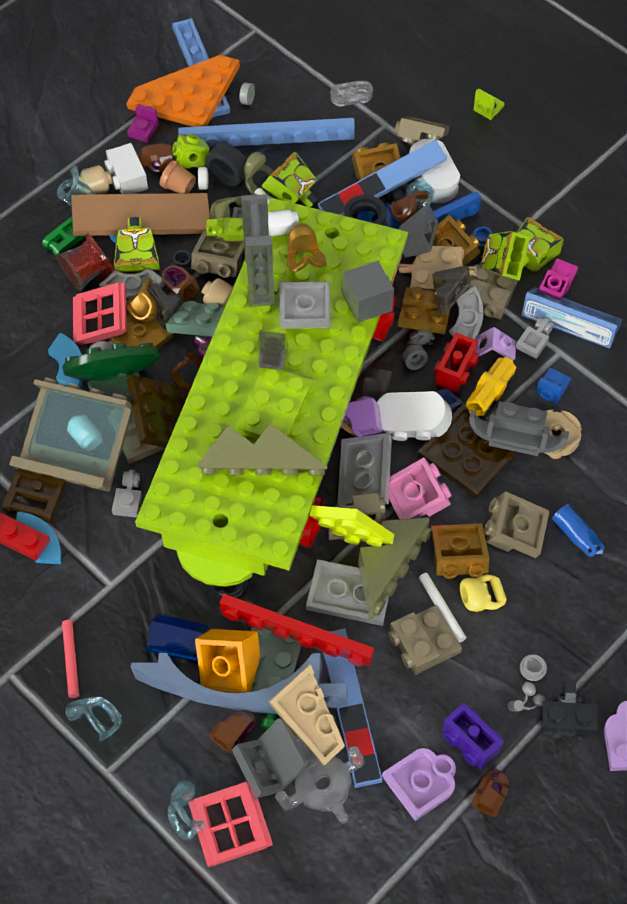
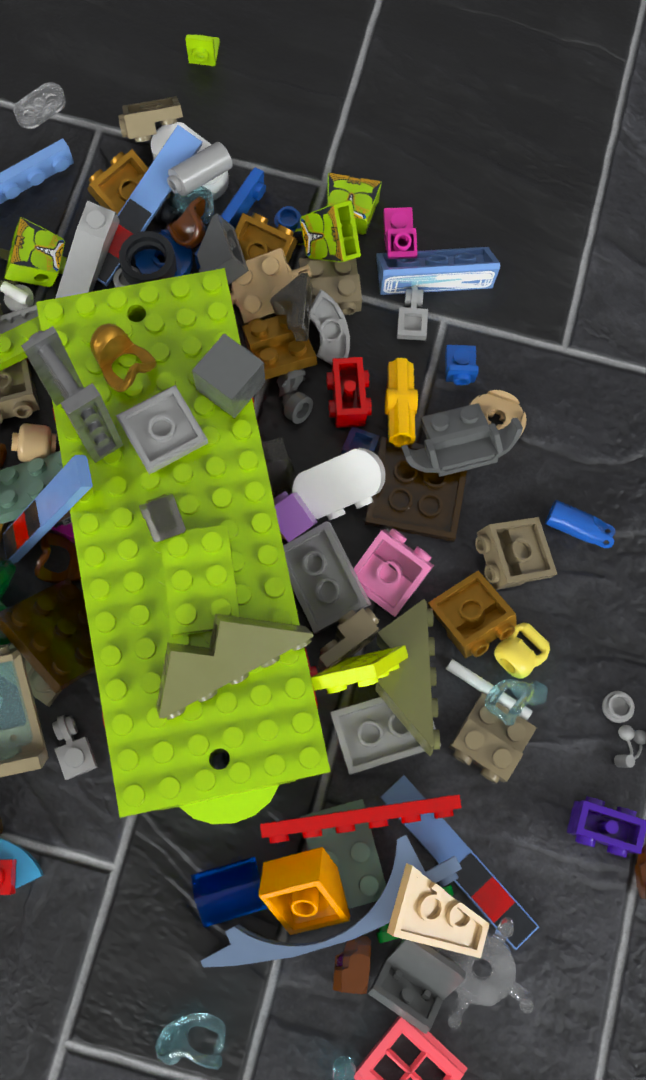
camera: 35 degrees left, 15 degrees up
(70, 659) = (123, 985): coral bar -> none
(202, 325) = (48, 508): none -> medium blue tile
(282, 222) = (75, 331): white brick -> none
(332, 187) = (88, 250): none -> light grey slope
(421, 781) = (580, 903): lavender plate -> none
(434, 173) = (199, 169): none -> light grey brick
(469, 617) = (531, 694): none -> clear light blue piece
(498, 342) = (377, 343): lavender bracket -> none

